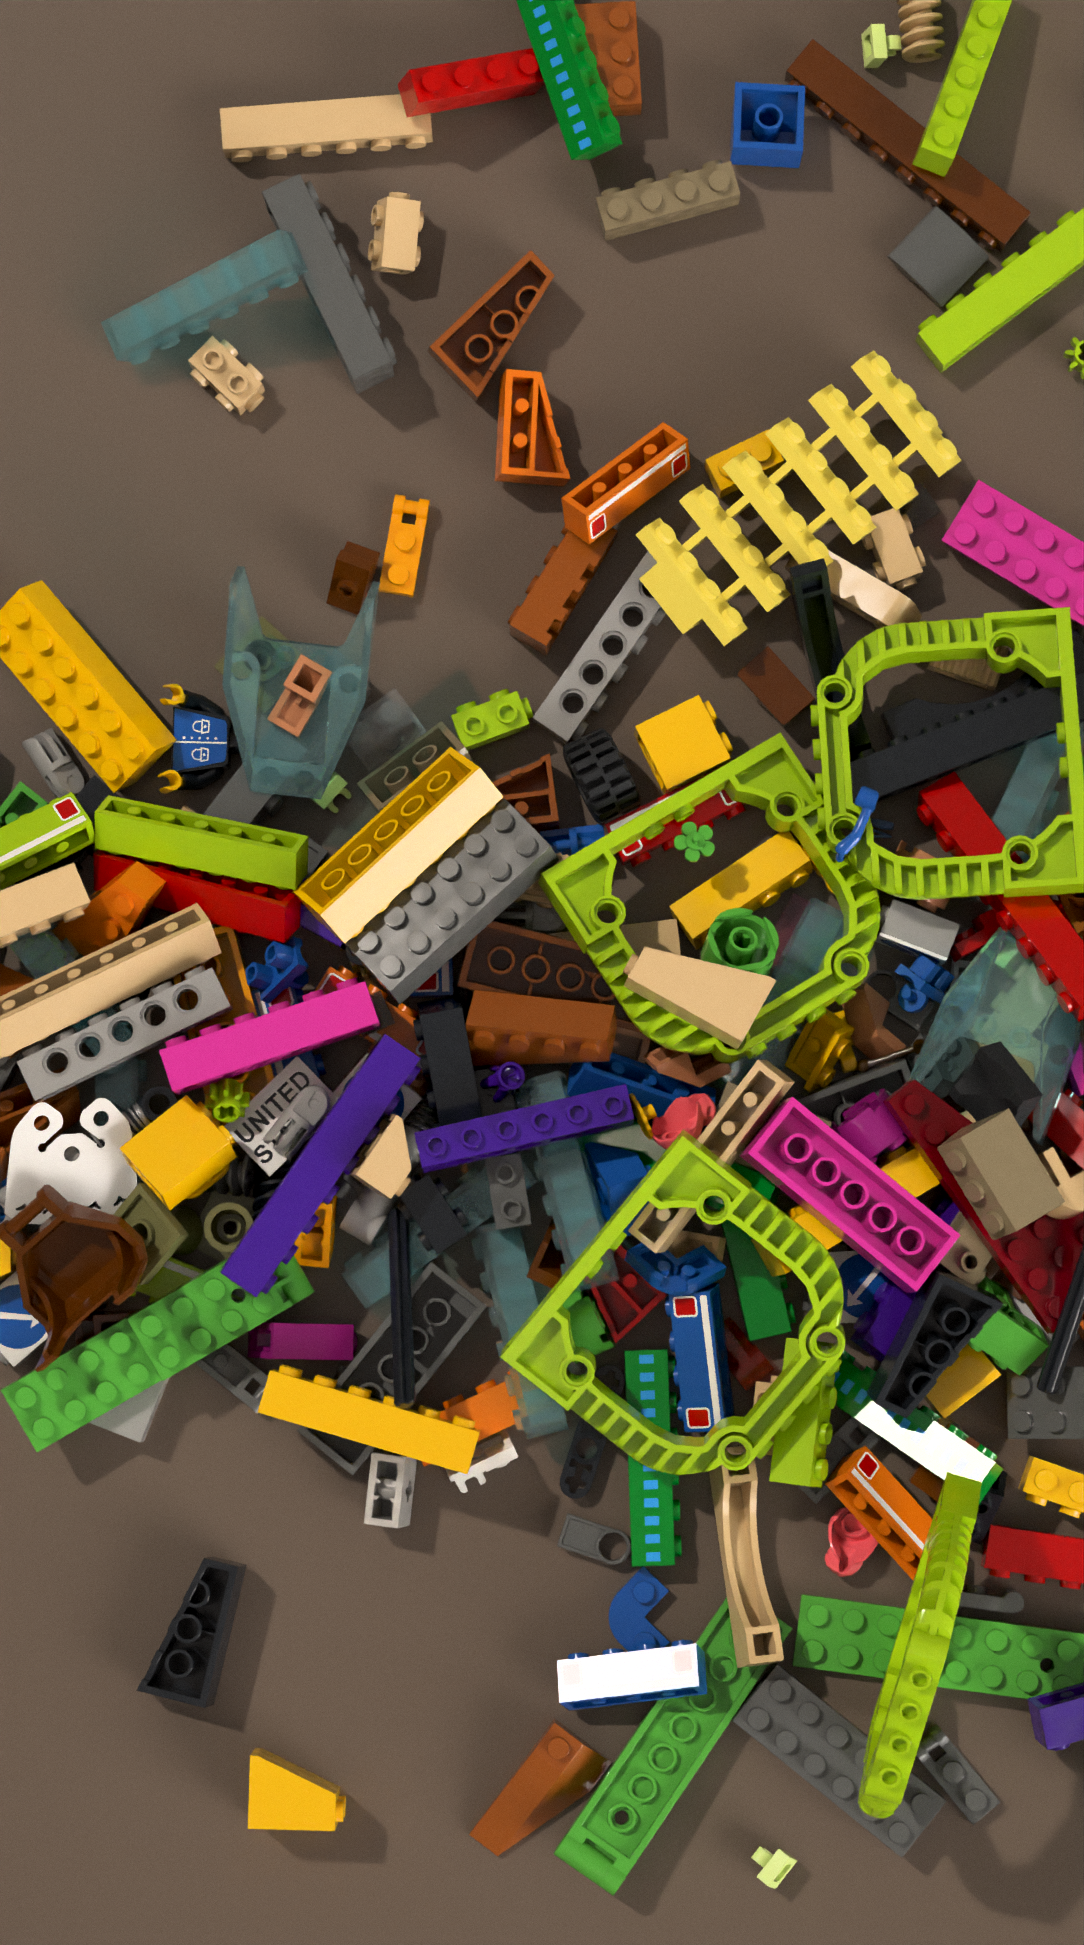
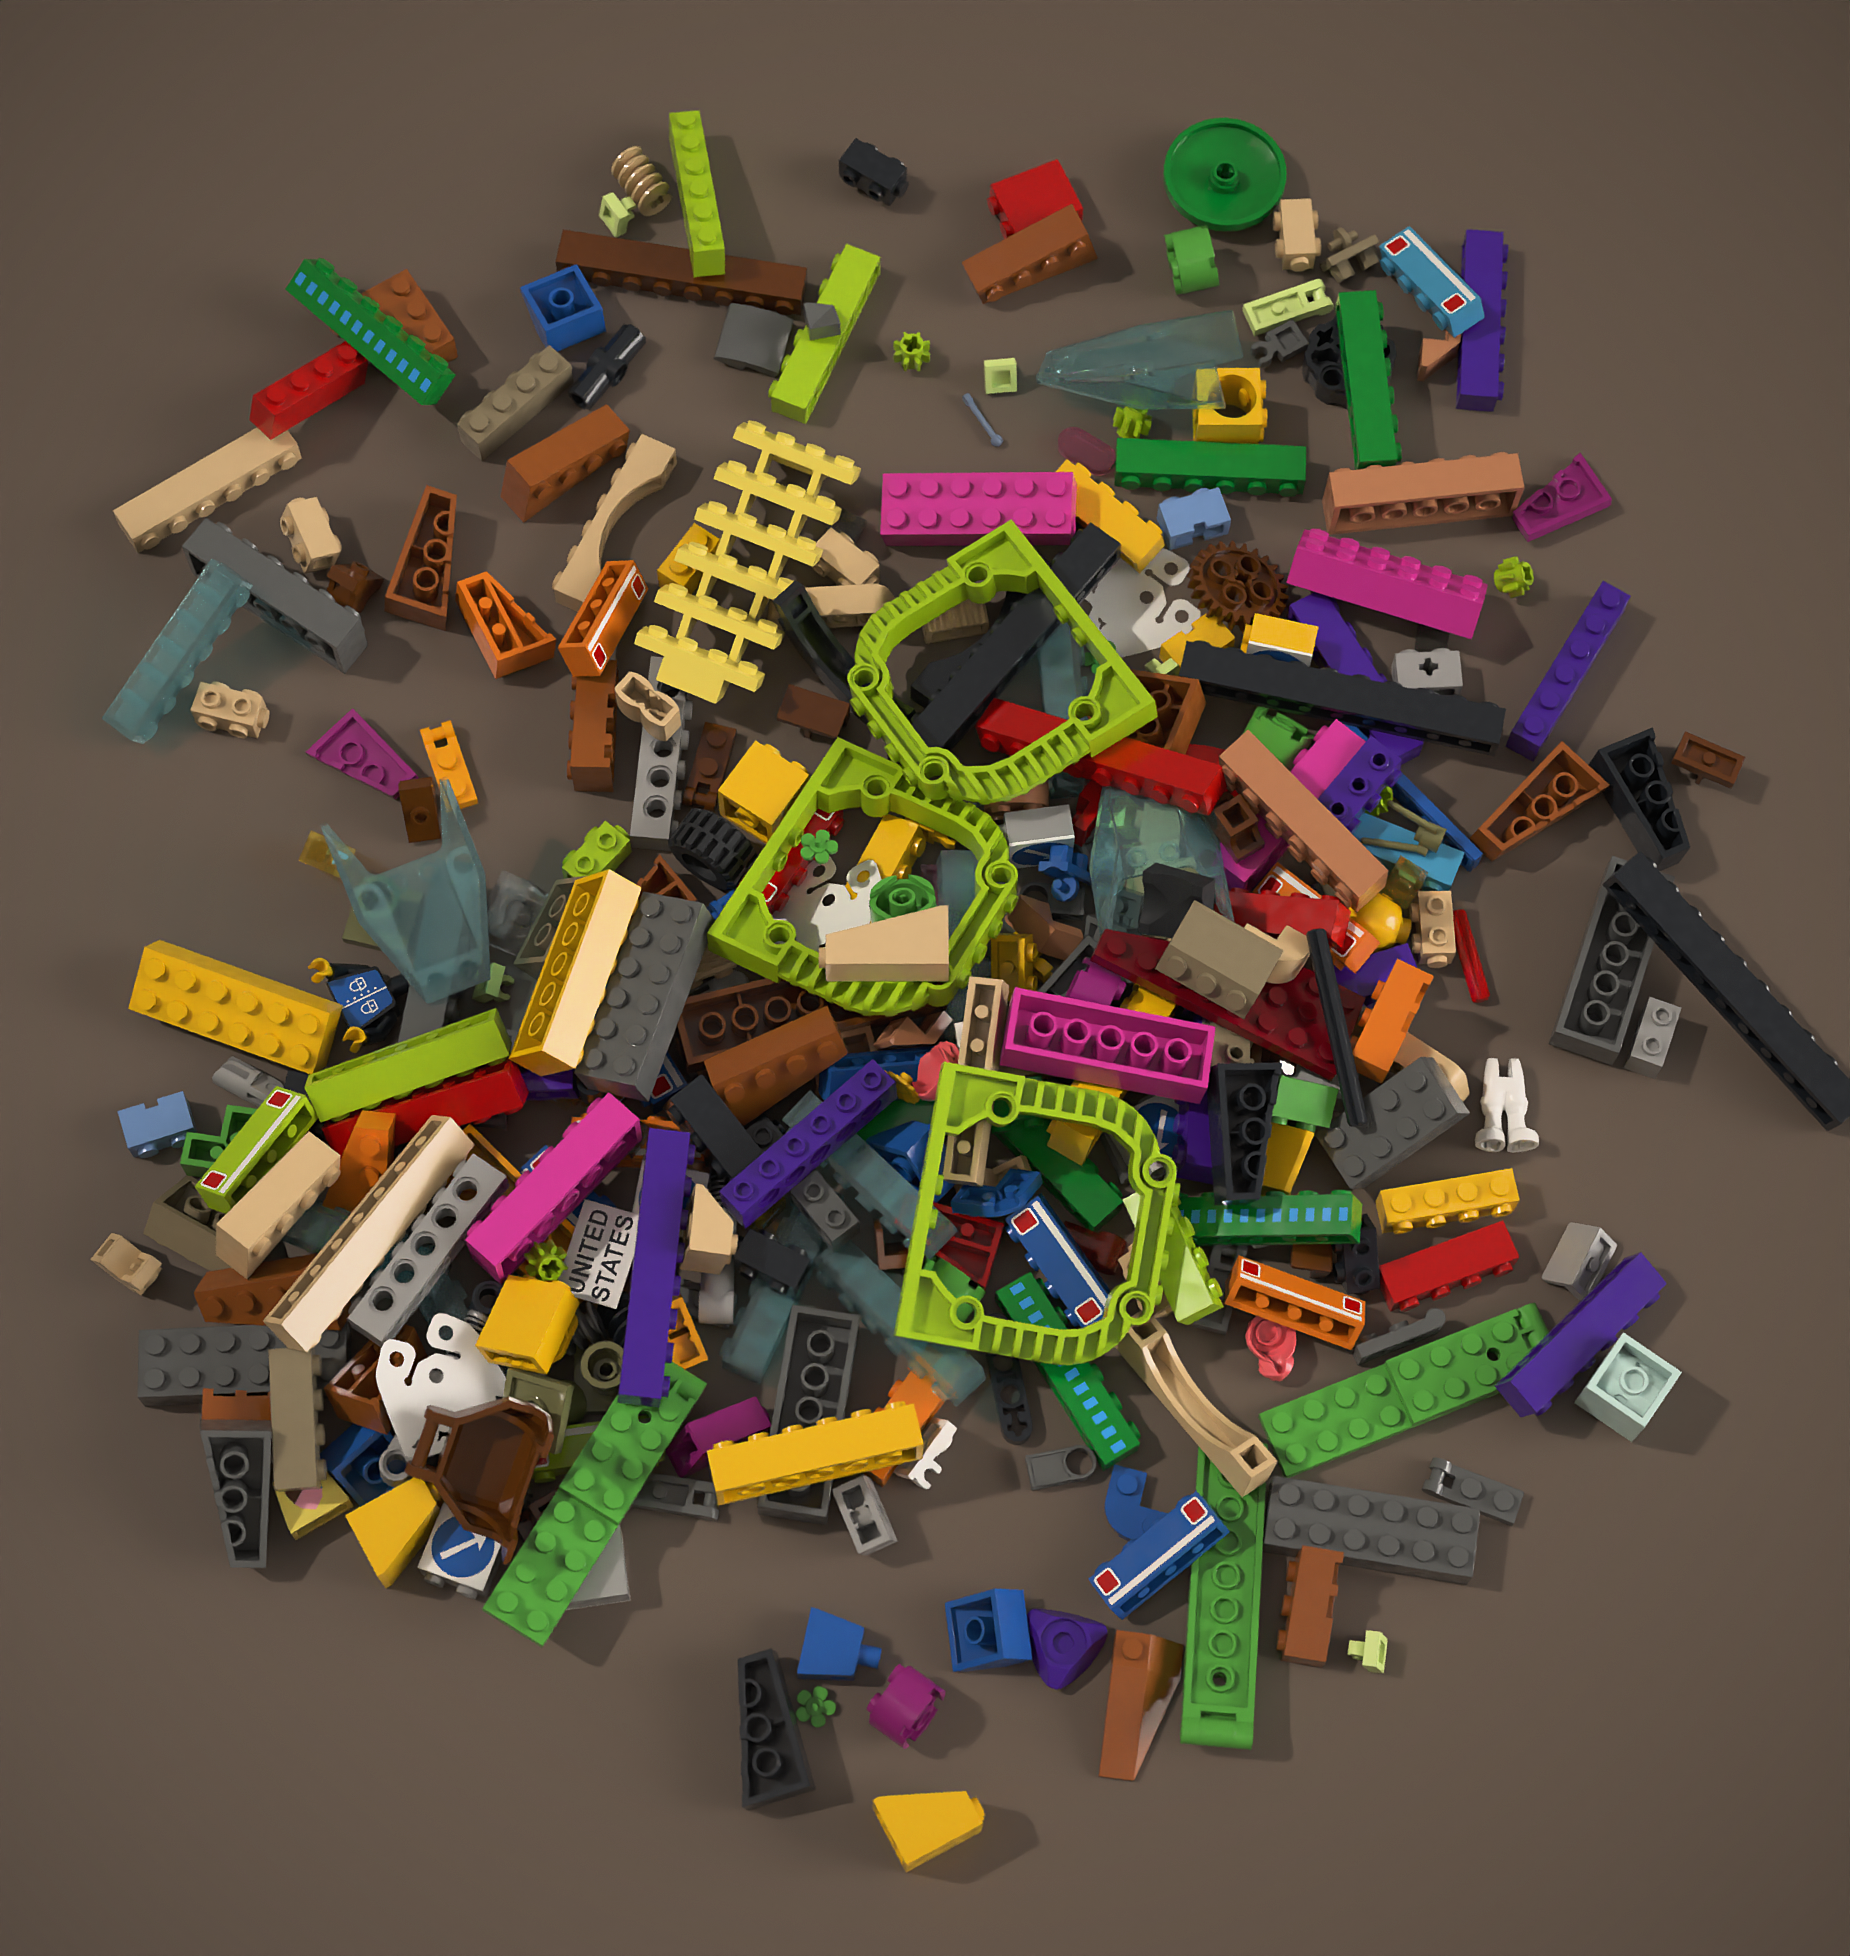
camera: 35 degrees left, 15 degrees down
(225, 570) = (317, 854): none -> clear yellow brick
(254, 1630) = (814, 1706): none -> bright green plant
(282, 970) = (534, 1136): blue hips -> none
(298, 1591) = (834, 1649): none -> blue torso
(301, 696) = (428, 902): nougat slope -> none
(307, 1112) = (617, 1235): light grey arm -> none
(329, 490) = (362, 755): none -> magenta wing
(330, 1681) = (905, 1705): none -> magenta brick
(401, 1310) = (790, 1348): black axle -> none
(408, 311) = (353, 584): none -> reddish brown brick
(443, 1653) = (988, 1630): none -> blue slope
(503, 1701) = (1063, 1645): none -> dark purple hat
(507, 1077) = (771, 1115): dark purple piece -> none
(611, 592) = (652, 708): none -> tan brick
(650, 682) = (709, 766): none -> reddish brown plate
(676, 914) = (815, 920): none -> white piece
(681, 289) = (562, 461): none -> dark orange wedge
(740, 1797) = (1309, 1606): none -> dark orange wedge
(751, 343) = (644, 472): none -> tan arch
(778, 208) = (607, 366): none -> black piece
(864, 1065) = (1091, 920): dark brown hinge -> none
(867, 801) = (939, 736): blue piece -> none
(919, 1649) = (1386, 1369): lime arch -> none
(1011, 280) = (821, 320): none -> dark grey slope

